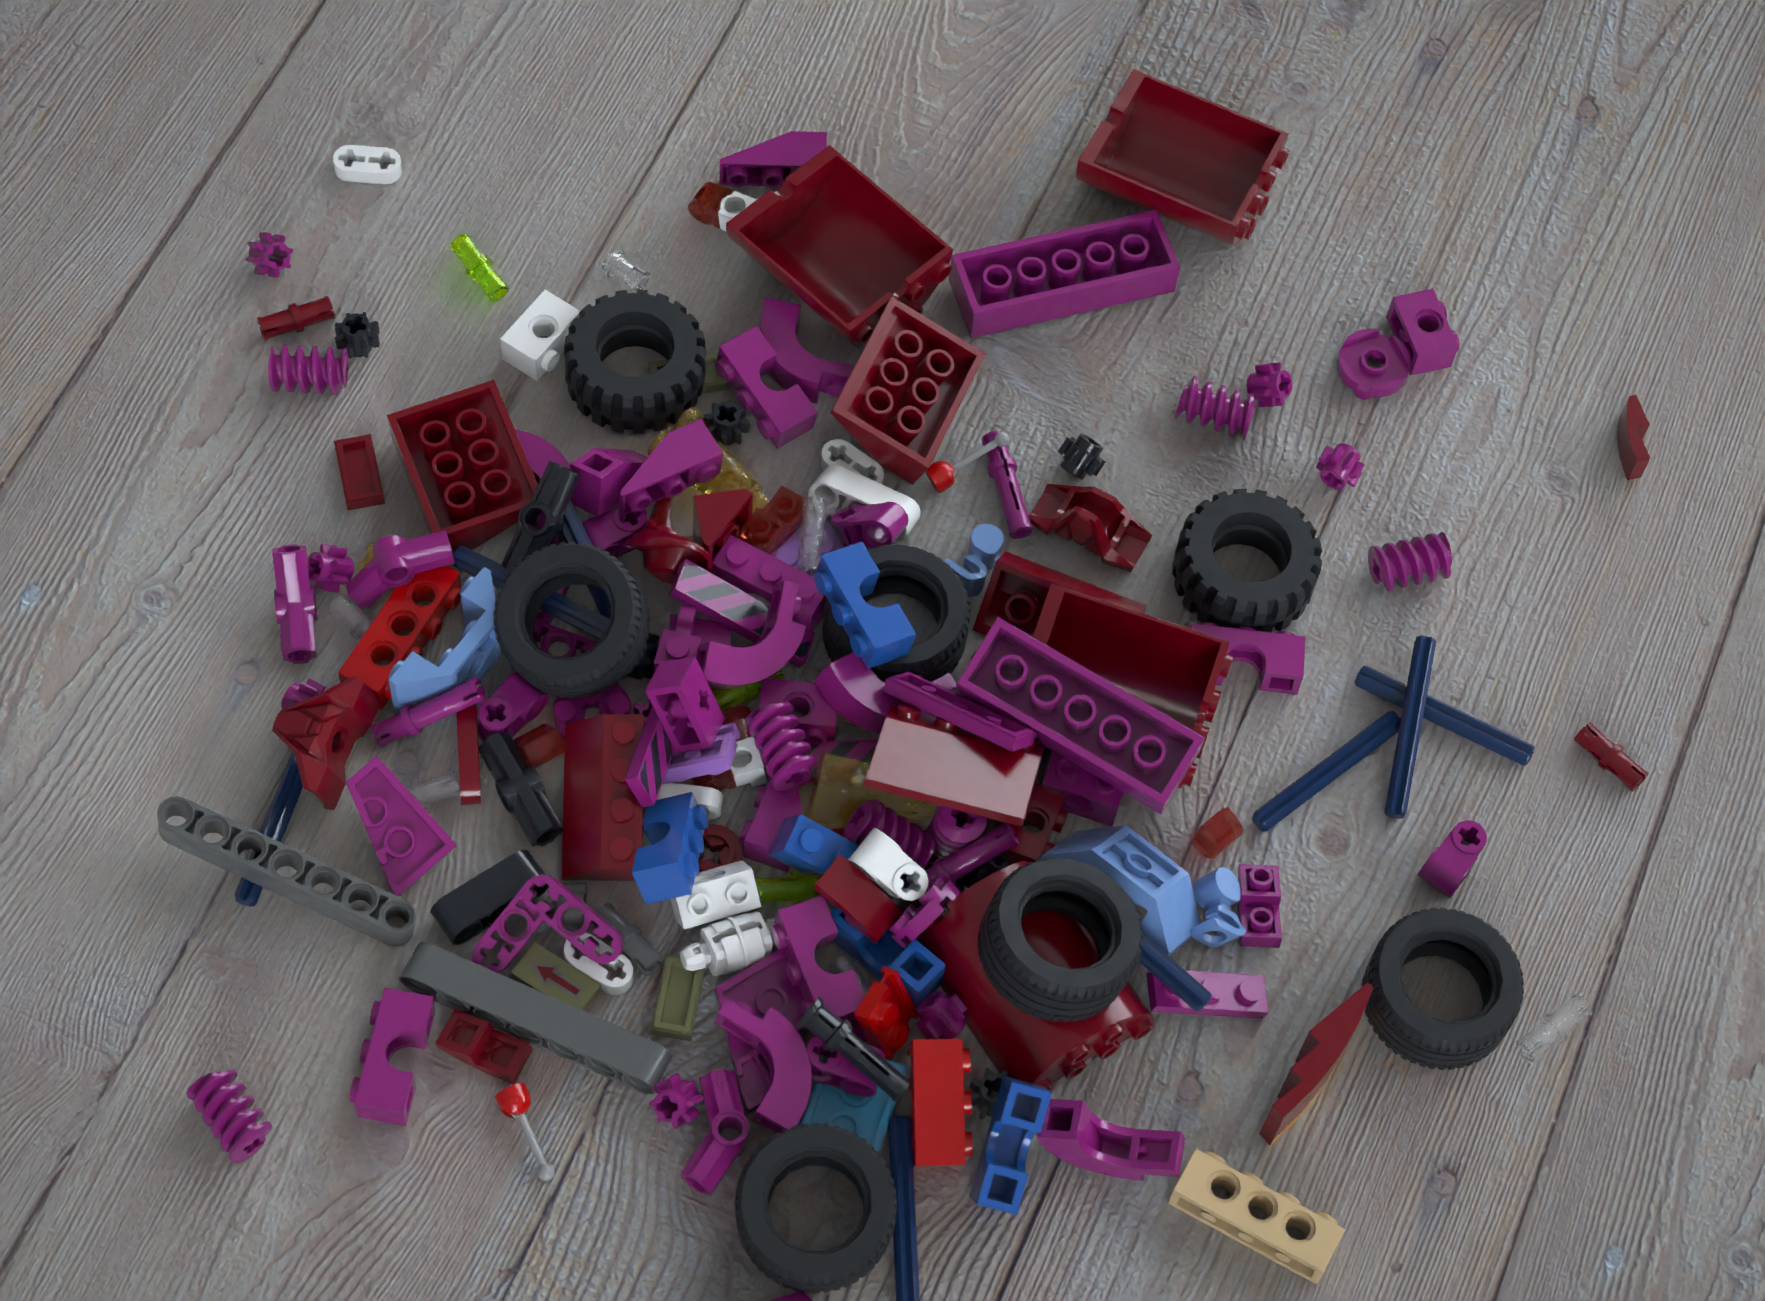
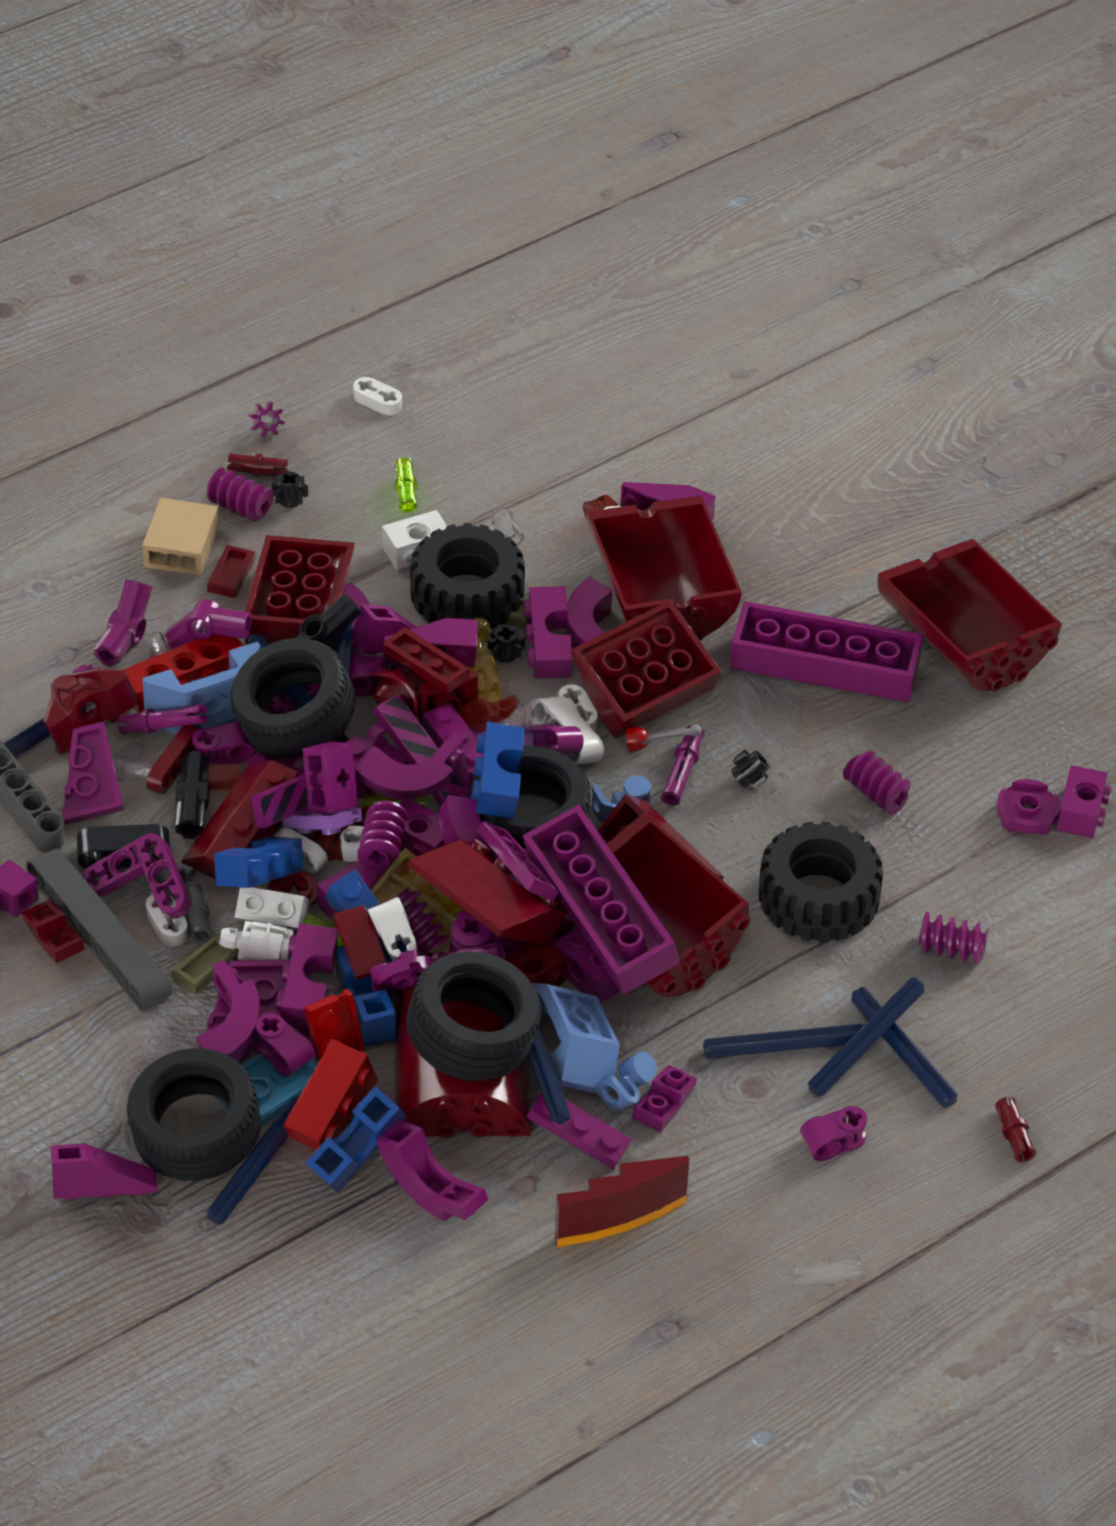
camera: 35 degrees right, 15 degrees down
(276, 455) = (180, 536): none -> tan brick
(330, 568) = (163, 612): magenta gear -> none
(514, 1103) = (47, 970): hinge -> none
(555, 977) = (132, 914): olive tile -> none
(676, 1100) = (153, 1016): magenta gear -> none
(691, 502) = (426, 660): none -> dark red plate
(717, 1154) = (182, 1035): magenta piece -> none
(839, 1037) = (283, 1016): black pin -> none
(941, 1016) = (378, 1050): magenta gear -> none
(1092, 520) = (742, 833): dark red piece -> none
(1217, 833) = (666, 1037): clear red brick -> none
(1266, 1236) = (507, 1276): tan brick -> none
(1269, 384) = (931, 784): magenta gear -> none
(1274, 655) = (798, 953): magenta arch -> none
(1340, 466) = (945, 856): magenta gear -> none
(1473, 946) = (755, 1162): black tyre -> none

